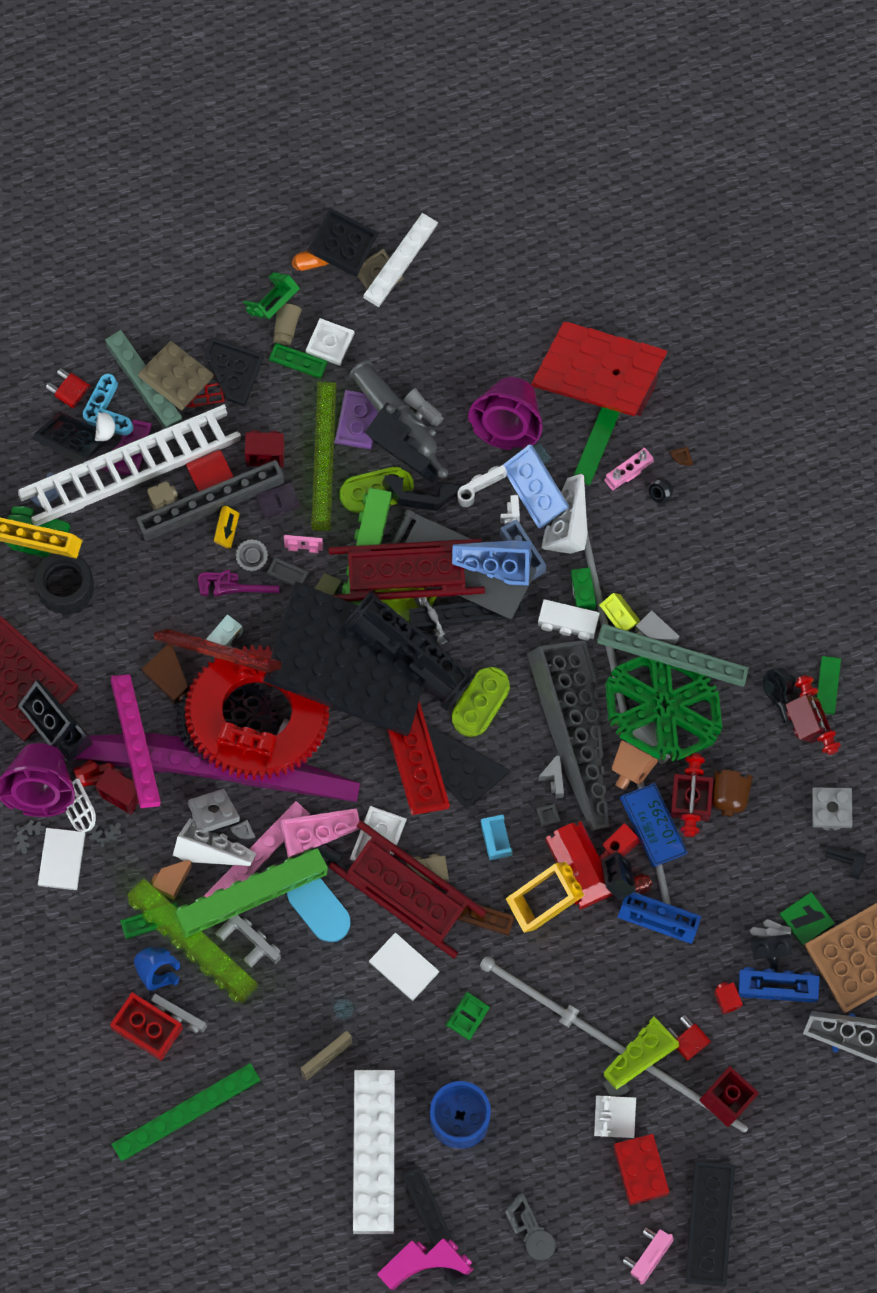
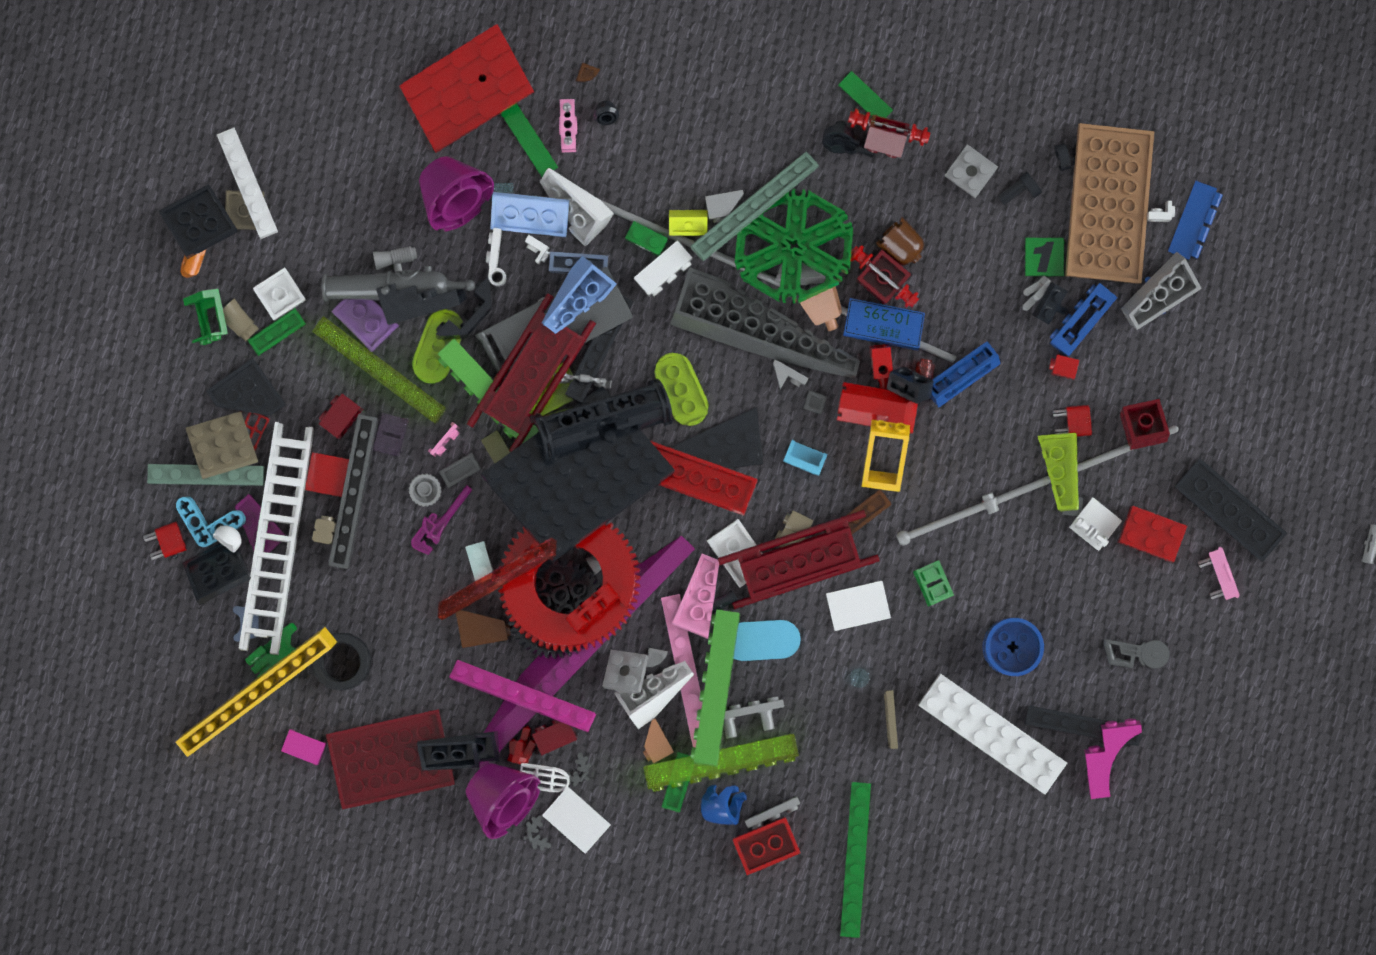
camera: 50 degrees left, 15 degrees up
(226, 527) = (385, 493): yellow tile -> none

